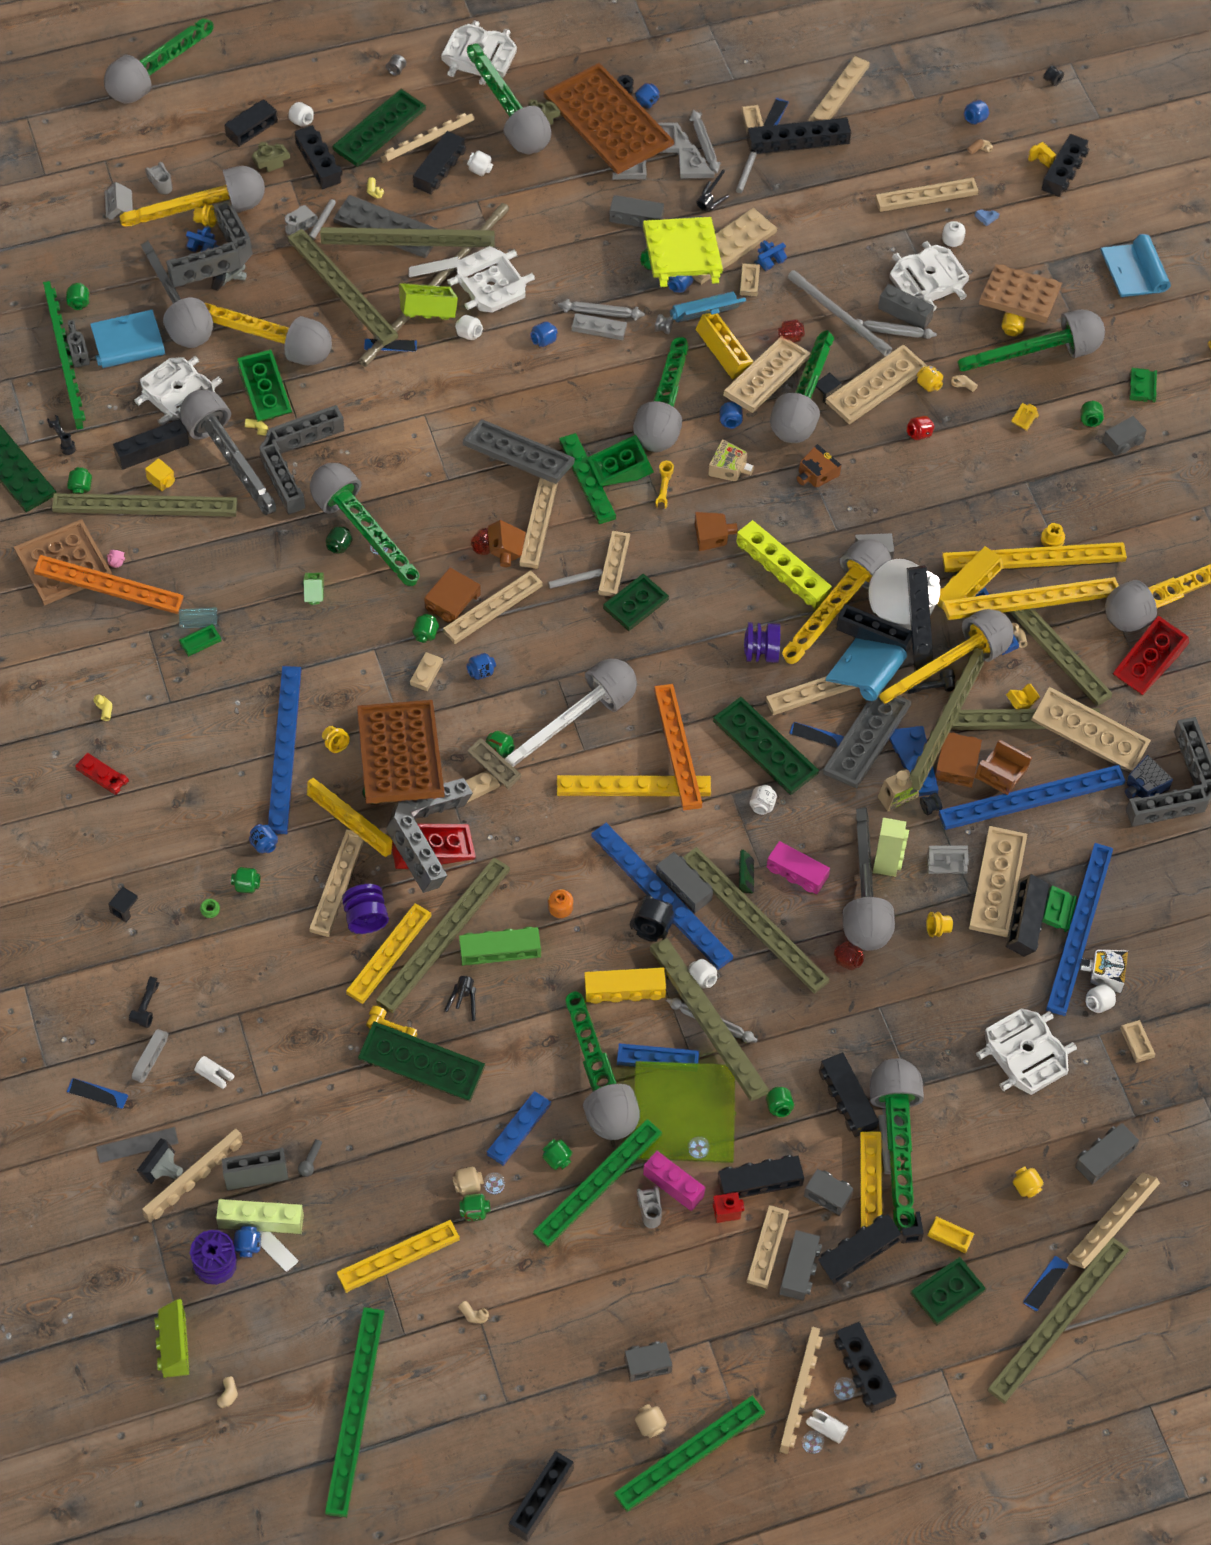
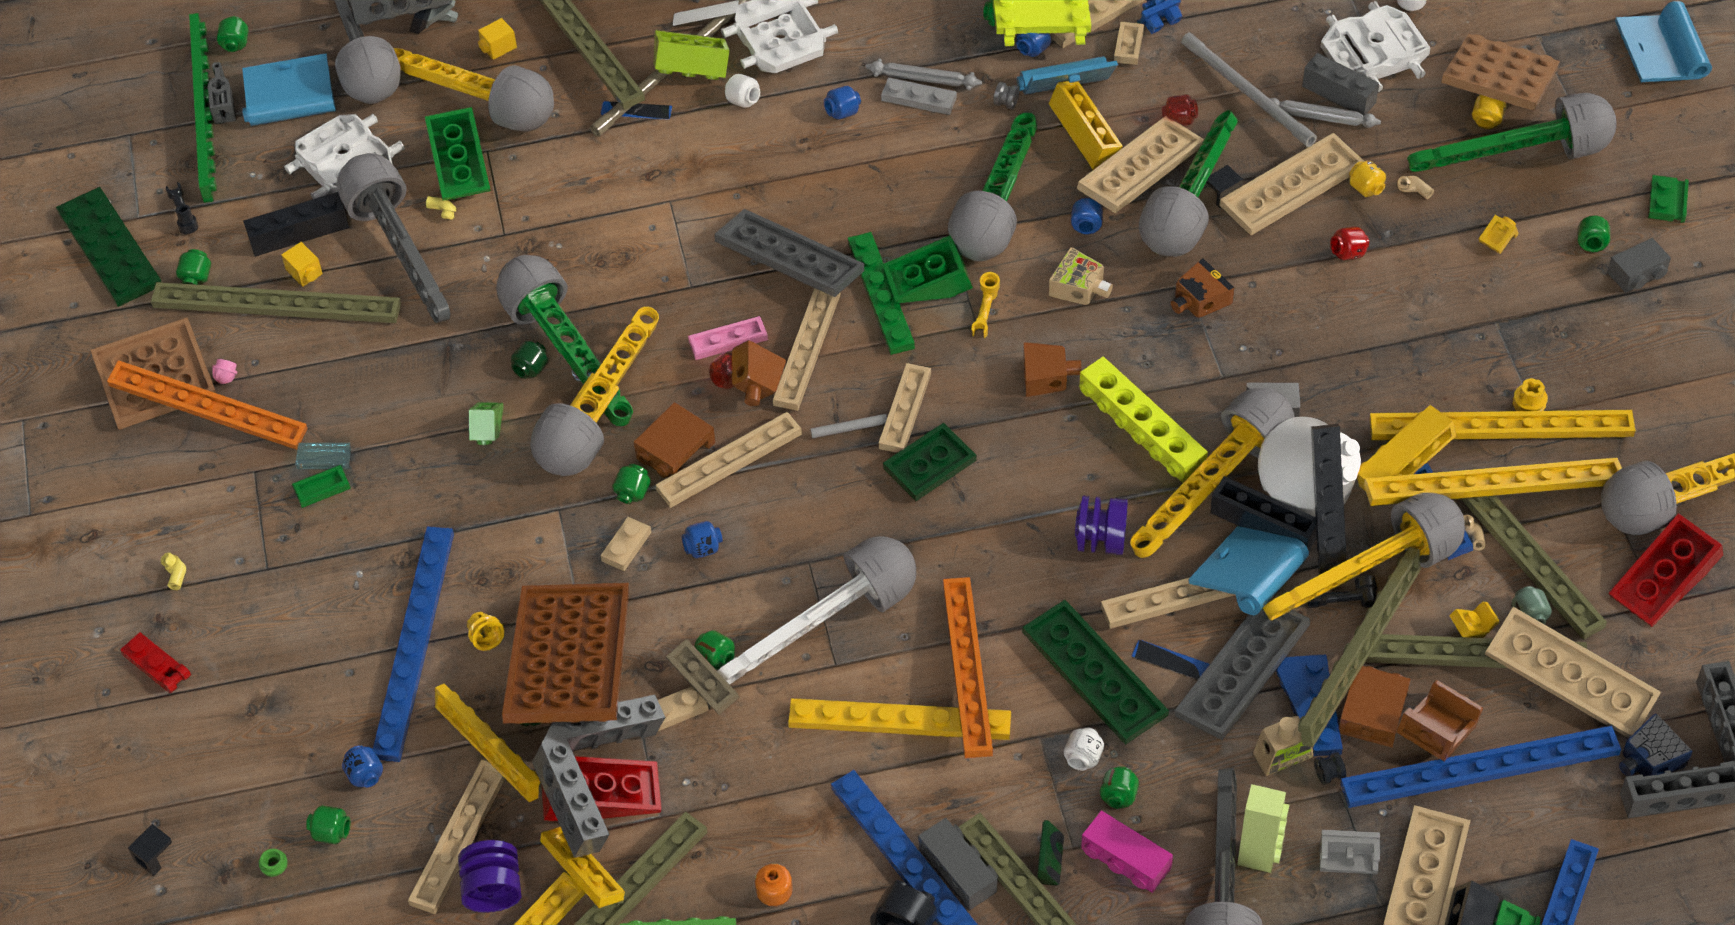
camera: 10 degrees right, 5 degrees down
(279, 293) = (497, 39): none -> yellow brick
(291, 436) = (482, 221): dark grey brick -> none
(379, 597) = (566, 436): none -> piece
(429, 900) = (584, 870): none -> yellow plate
(480, 517) = (727, 337): none -> bright pink tile
(789, 824) = (1119, 786): none -> green head
(1062, 683) = (1533, 603): none -> sand green head

